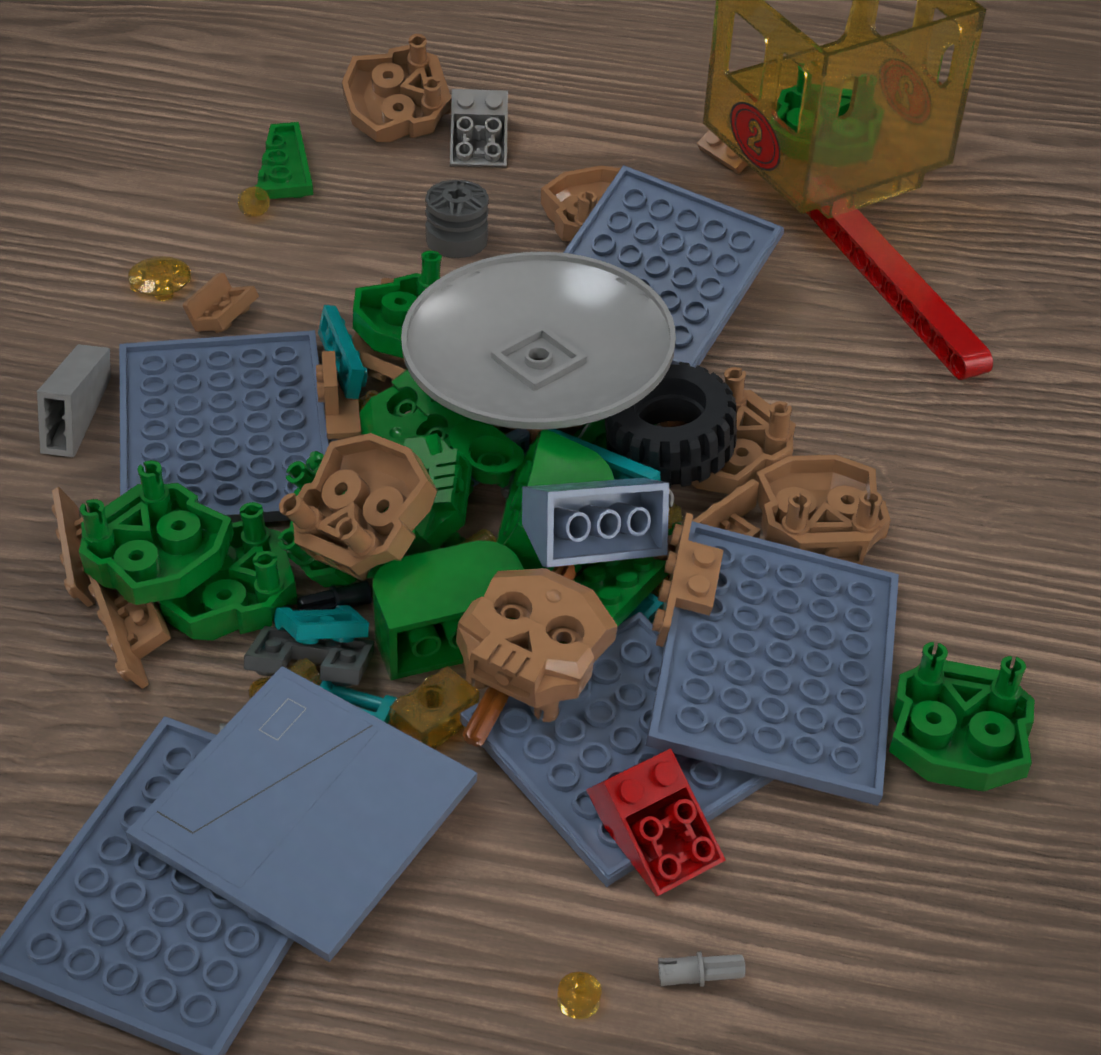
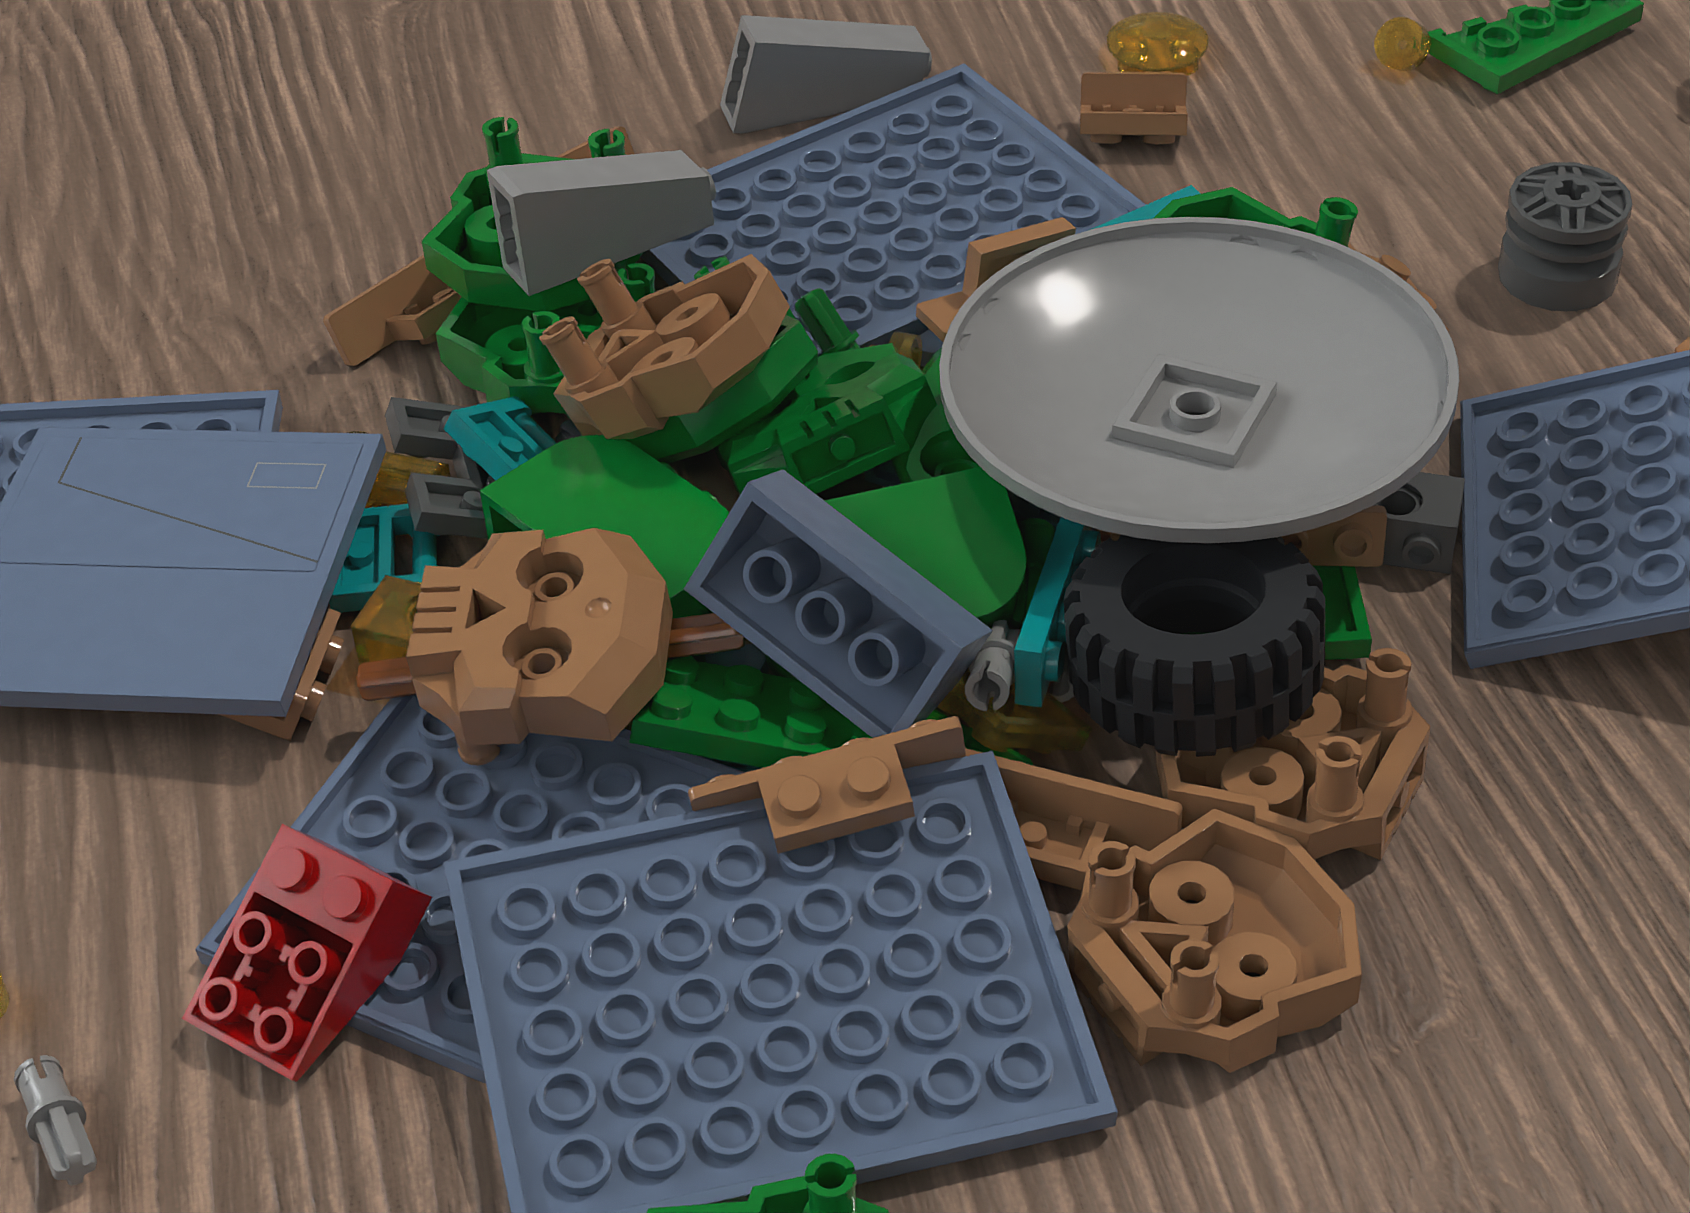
camera: 70 degrees right, 0 degrees up
(210, 501) = (579, 211): none -> light grey slope

